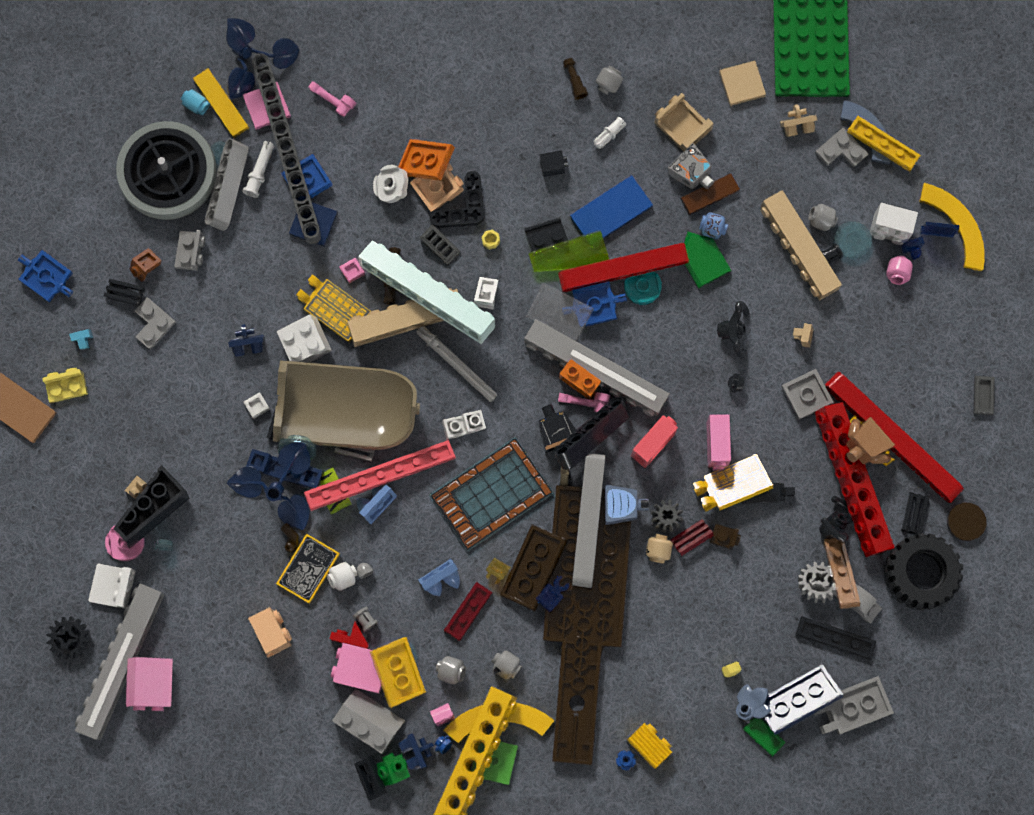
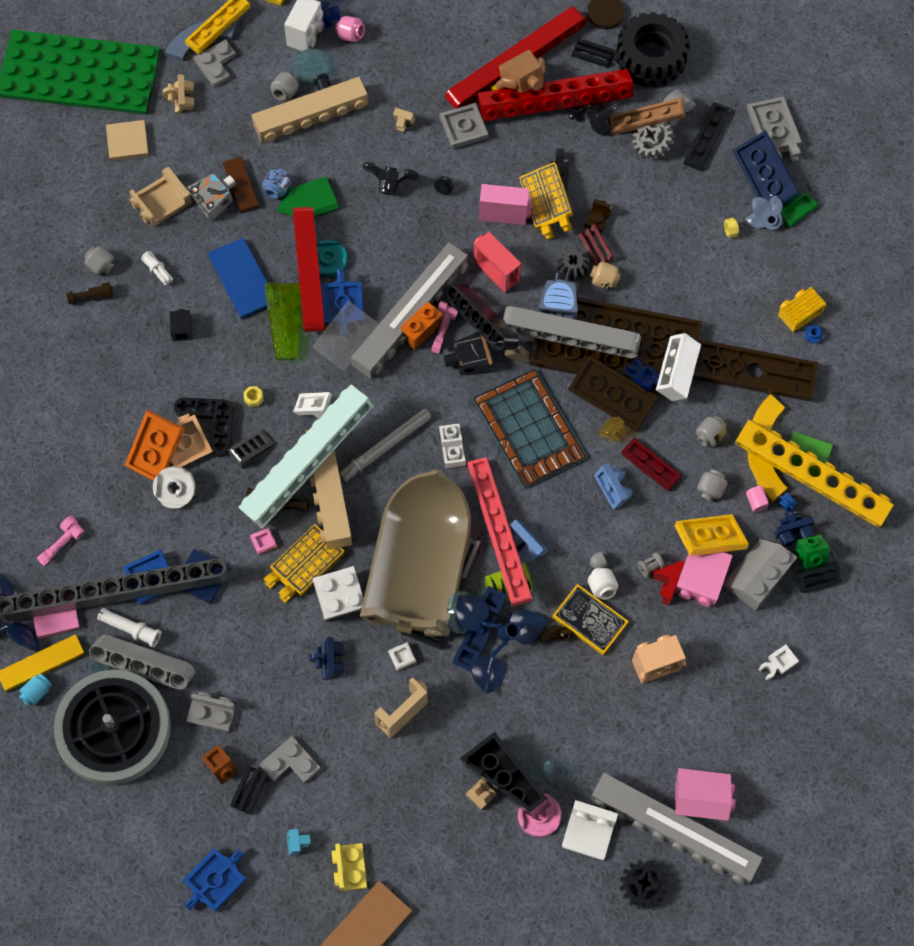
camera: 85 degrees left, 10 degrees down
(187, 399) = (392, 724): none -> tan panel
(284, 748) = (781, 661): none -> white plate
(545, 234) = (258, 343): black plate -> none
(562, 625) = (678, 367): none -> white brick

